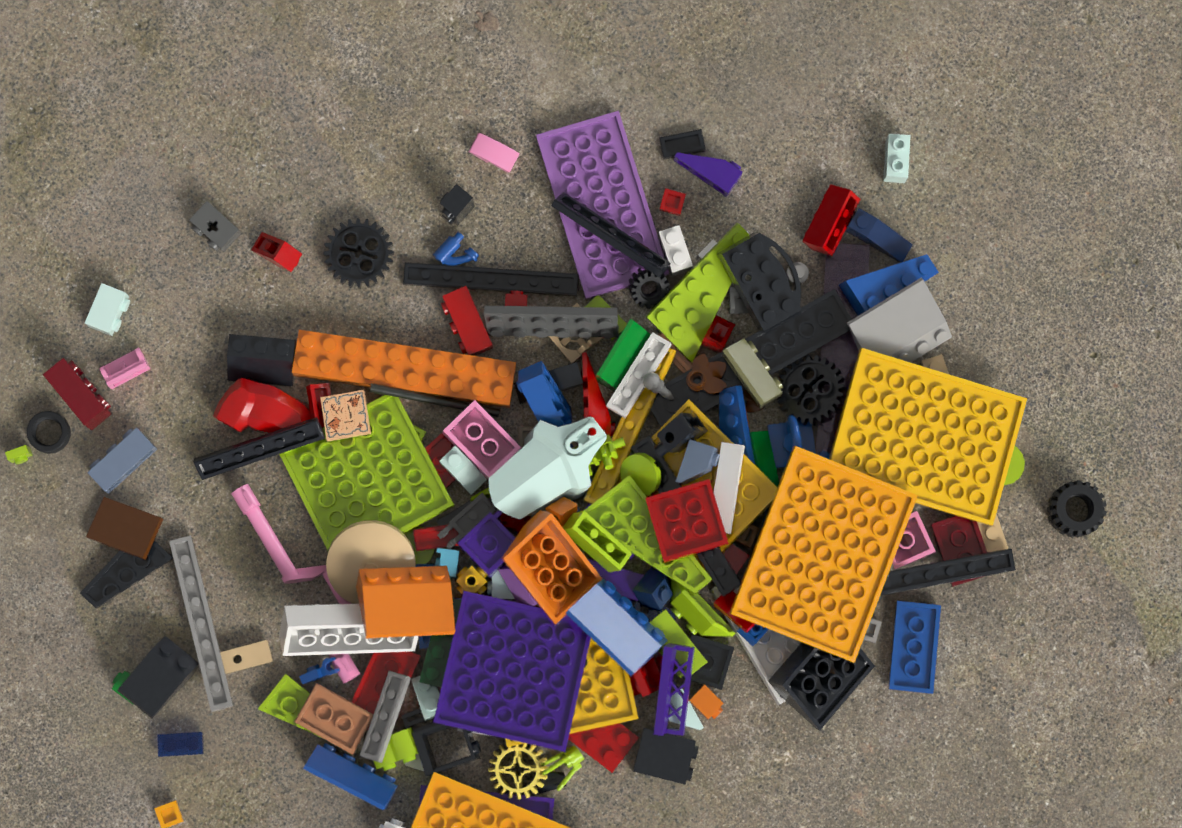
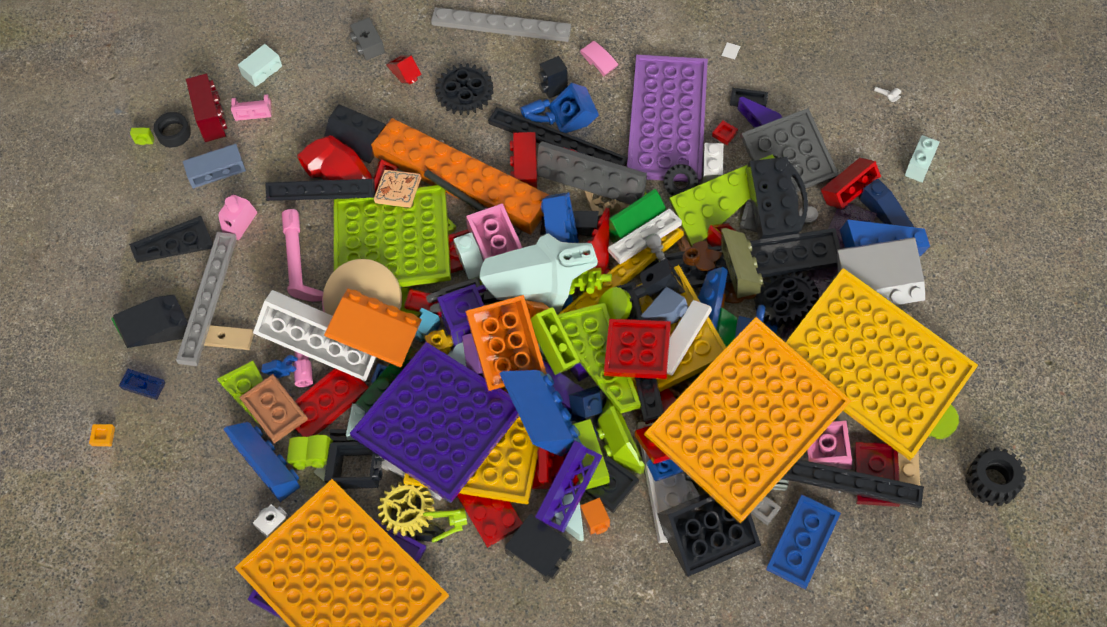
camera: 30 degrees right, 20 degrees down
(124, 528) = (188, 210): reddish brown tile -> none
(182, 515) = (236, 215): none -> bright pink torso
(360, 145) = (501, 24): none -> light grey plate
(385, 716) = (314, 420): light grey tile -> none
(493, 234) = (573, 109): none -> blue slope
(611, 234) = (666, 132): black tile -> none
(638, 83) = (731, 50): none -> white sticker
(757, 200) = (799, 140): none -> dark grey plate
(840, 80) = (892, 96): none -> white hand

